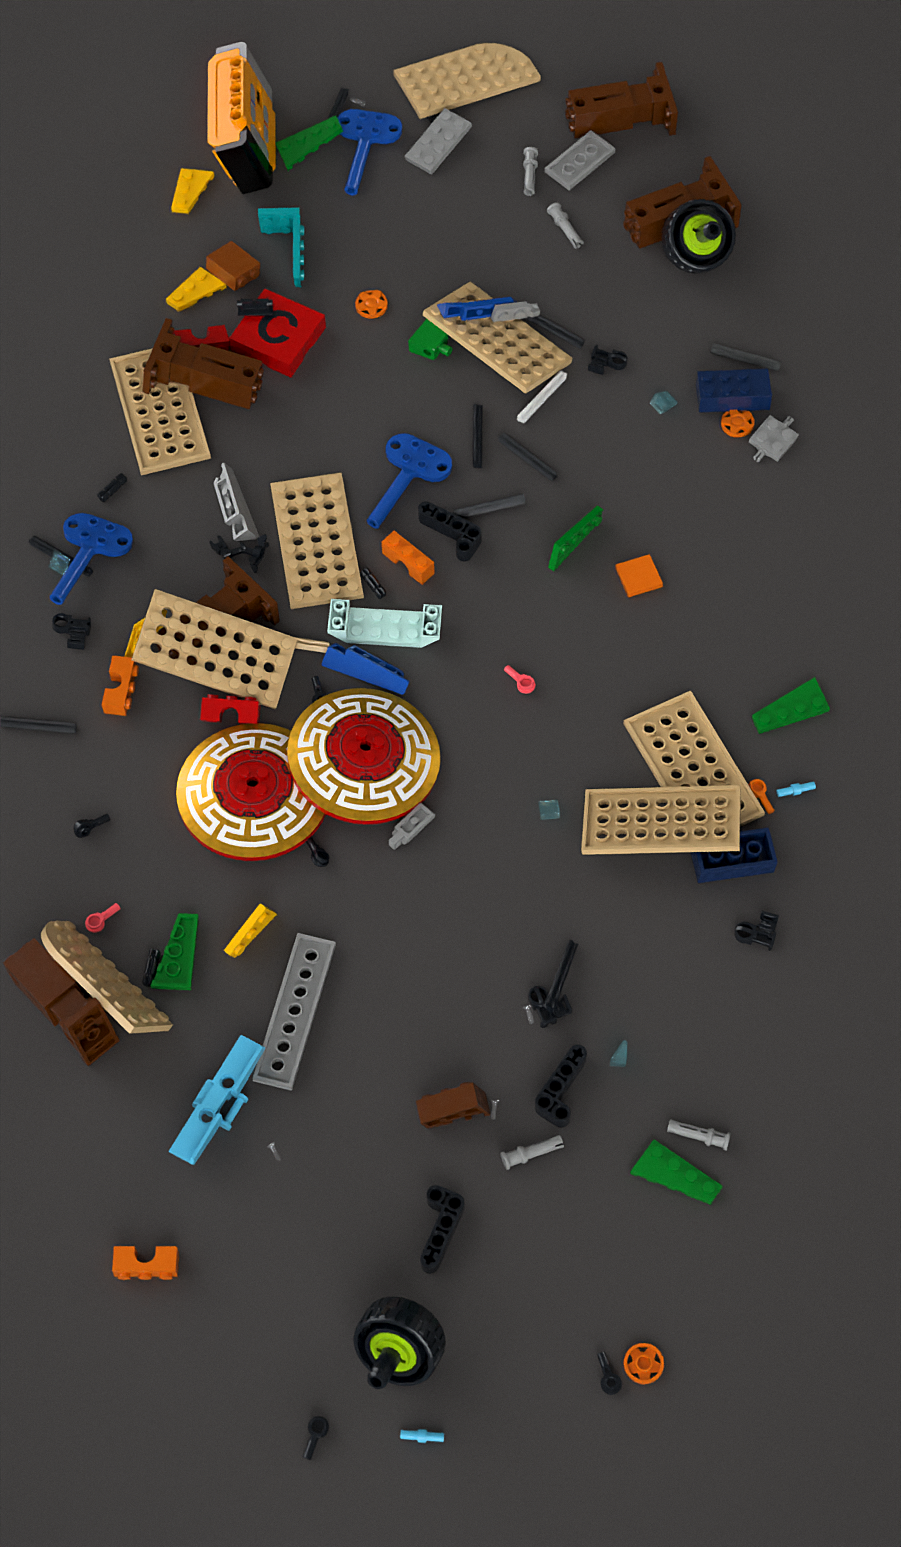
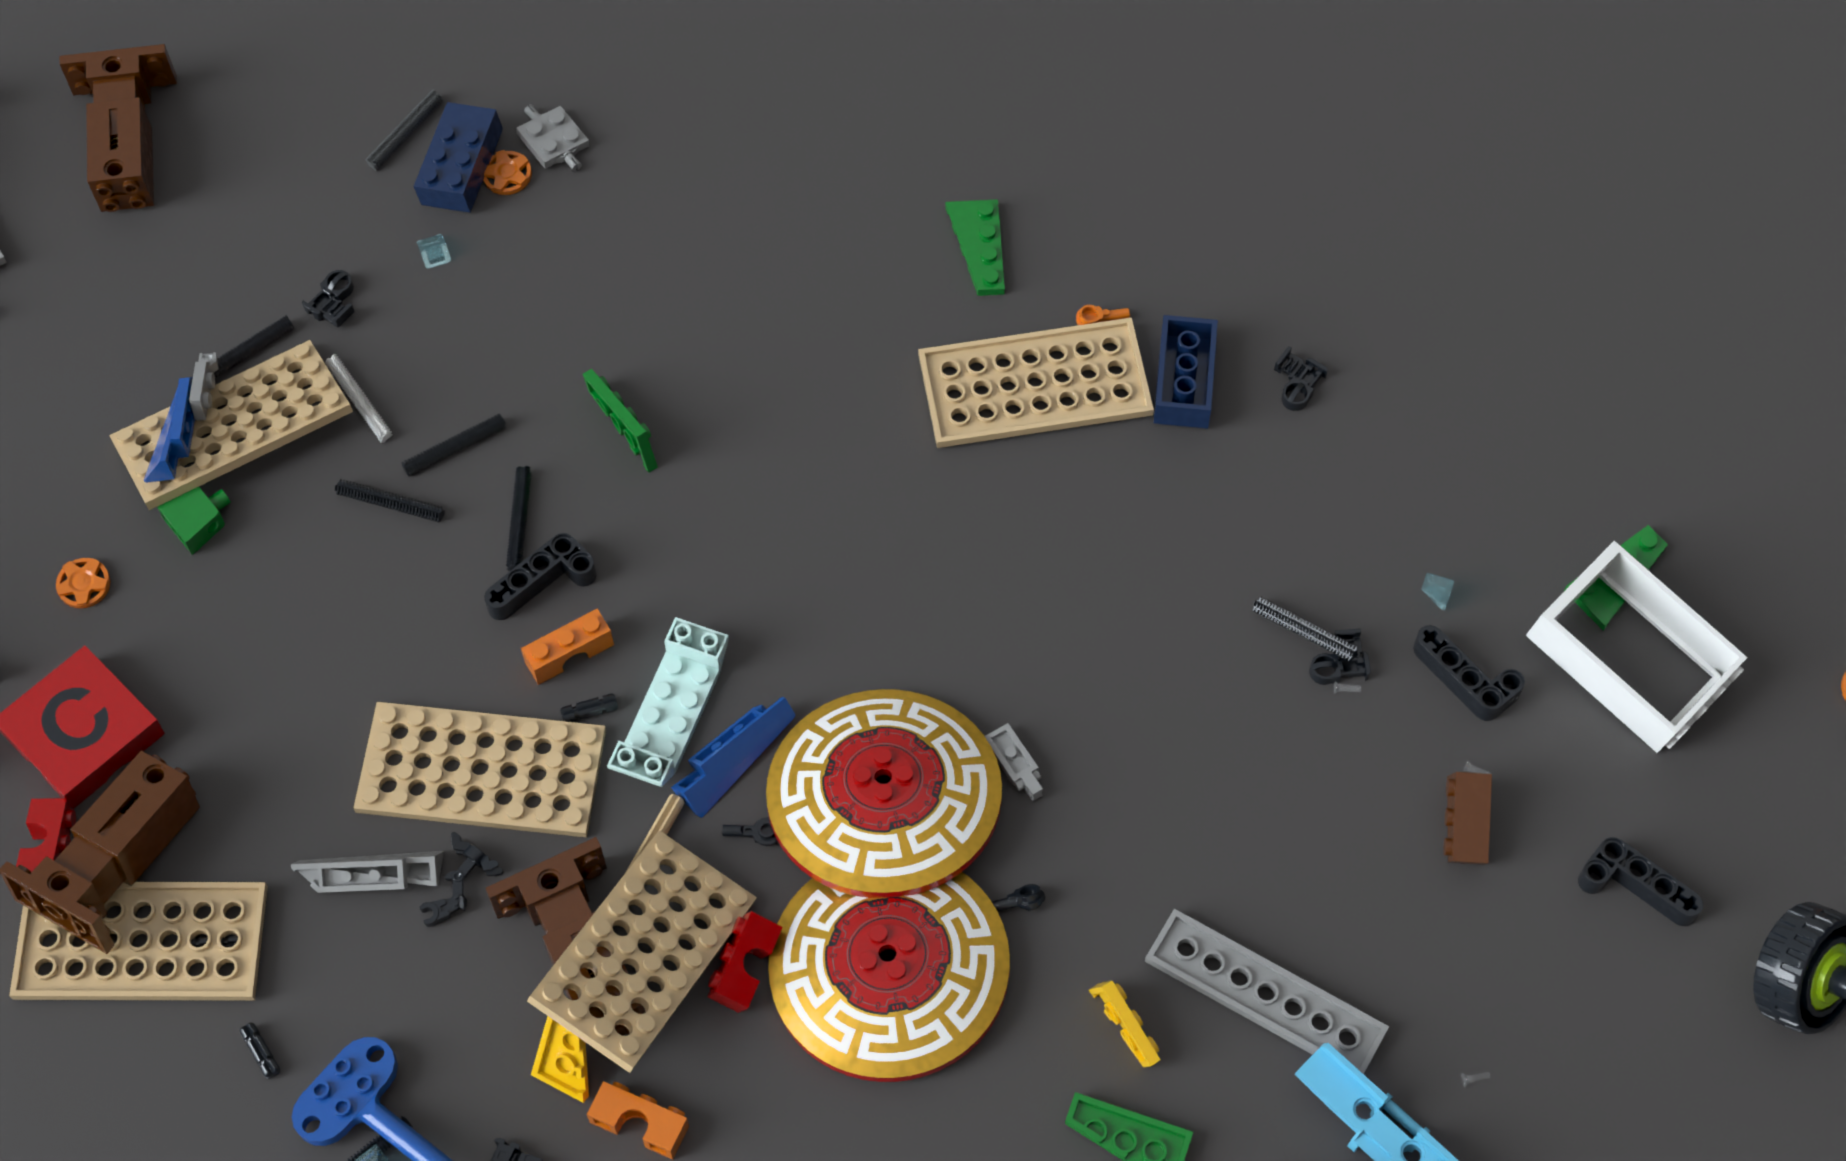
camera: 75 degrees left, 0 degrees up
(260, 307) = (27, 739): black hinge -> none
(415, 460) = (400, 592): blue piece -> none
(522, 1153) = (1553, 750): light grey pin -> none
(525, 683) = (831, 551): coral plate -> none
(549, 809) = (1041, 576): clear light blue slope -> none
(561, 219) = (57, 285): light grey pin -> none
(609, 1121) = (1670, 617): none -> white door
(639, 575) = (708, 362): orange tile -> none
(652, 812) = (1151, 455): tan piece -> none
(698, 236) = (190, 112): black wheel -> none
(708, 1136) = (1576, 520): light grey pin -> none
(796, 789) = (1104, 274): medium azure bar -> none

